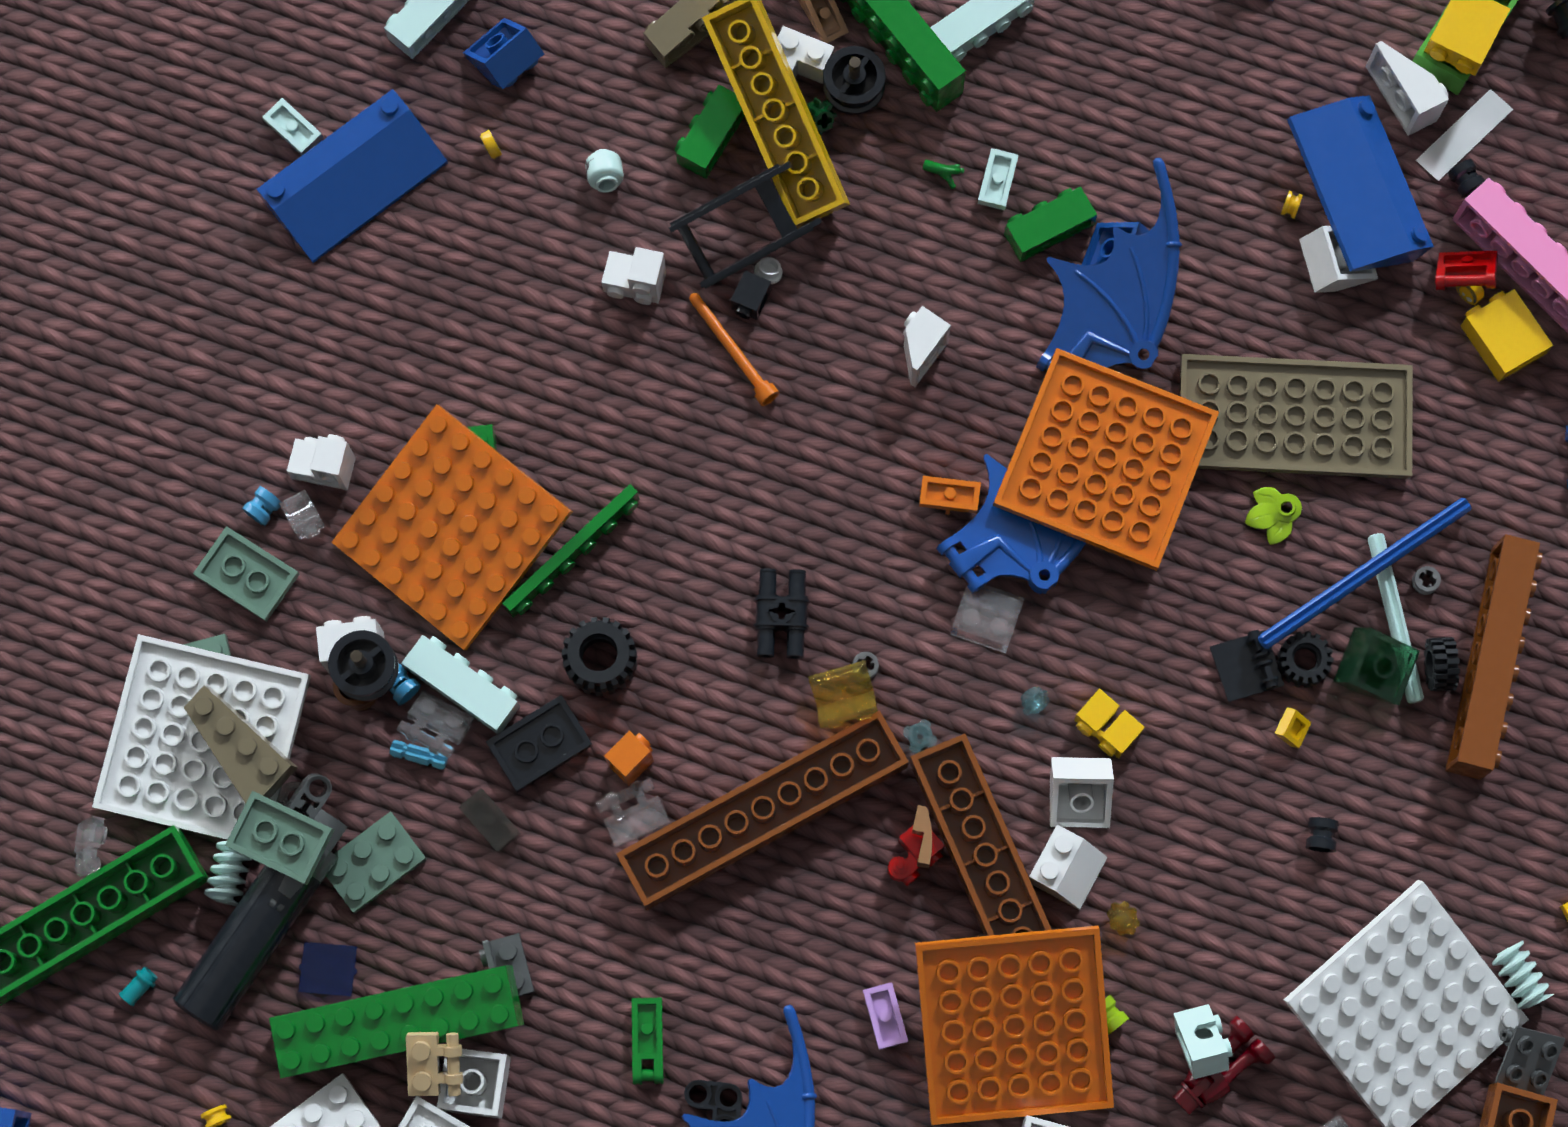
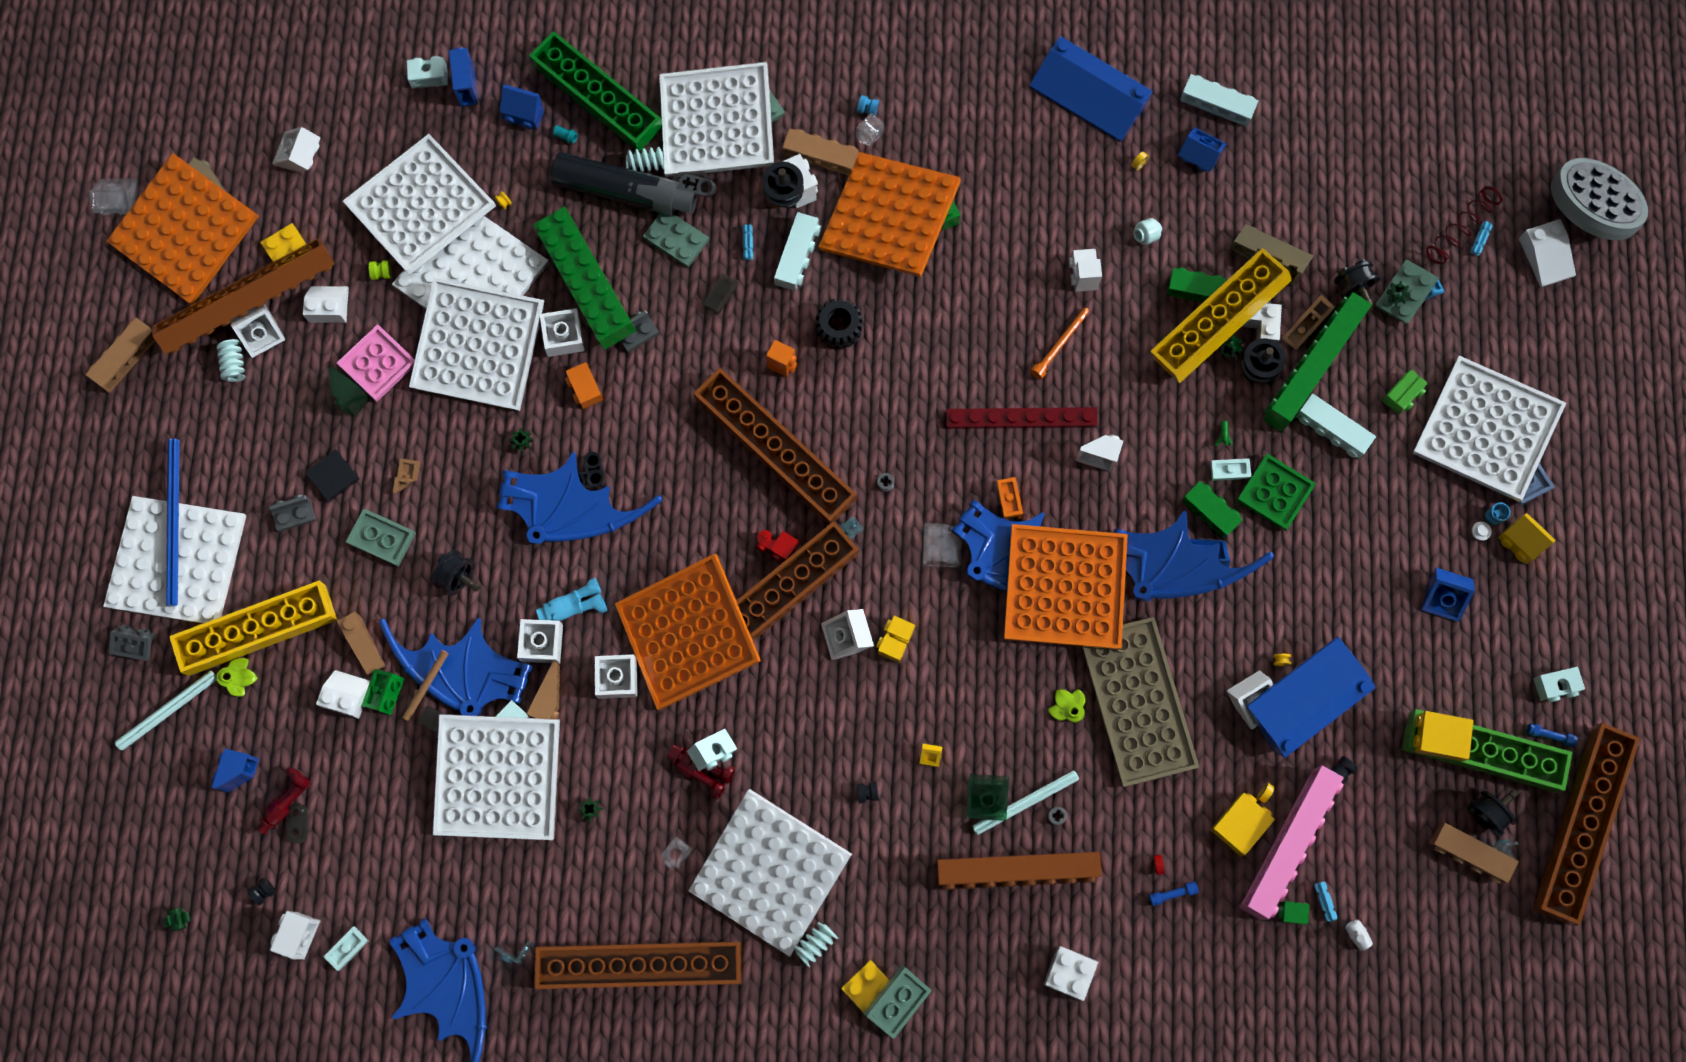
camera: 70 degrees right, 0 degrees up
(71, 1043) = (521, 107): none -> blue slope
(89, 837) = (640, 78): clear plate -> none
(238, 746) = (714, 140): dark tan wedge -> none
(246, 574) = (824, 111): sand green plate -> none
(279, 837) = (667, 173): sand green plate -> none
(292, 127) = (1109, 45): light aqua plate -> none
(311, 599) = (821, 152): none -> medium nougat brick
(322, 461) = (906, 130): white brick -> none
(328, 969) = (606, 234): clear blue piece -> none
(404, 687) = (785, 217): dark azure wheel -> none
(424, 1064) = (560, 297): tan plate -> none
(438, 717) = (773, 245): clear plate -> none
(539, 743) = (775, 307): black plate -> none
(564, 559) = (894, 285): green plate -> none
(569, 1074) = (584, 385): none -> orange brick
(636, 820) = (746, 377): clear plate -> none
(647, 1039) = (617, 424): green plate -> none
(750, 296) = (1097, 342): black brick -> none
(769, 269) = (1118, 348): white plate -> none
(776, 209) = (1155, 337): black piece -> none
(794, 606) = (905, 413): black pin -> none
(828, 442) = (1021, 418): none -> dark red plate
(843, 694) = (861, 472): clear yellow bracket -> none
(885, 1016) = (672, 557): lavender plate -> none
(922, 827) = (780, 546): medium nougat slope -> none
(1034, 700) = (896, 589): clear light blue plate -> none
(1049, 129) = (1276, 492): none -> green plate
(1067, 867) = (797, 639): white slope -> none
(1114, 1017) = (712, 691): lime wheel -> none
(1123, 918) = (776, 682): clear yellow plant -> none
(1246, 667) = (962, 716): black hinge -> none
(1317, 647) = (973, 762): black tyre -> none
(1364, 573) = (1047, 772): blue axle -> none
(1407, 87) = (1390, 713): white slope -> none
(1441, 664) = (1002, 837): black tyre -> none
(1464, 135) = (1375, 762): white sticker -> none
(1466, 269) = (1281, 783): red plate -> none
(1528, 1058) = (762, 961): dark grey hinge -> none
(1532, 465) = (1158, 864): none -> red tile

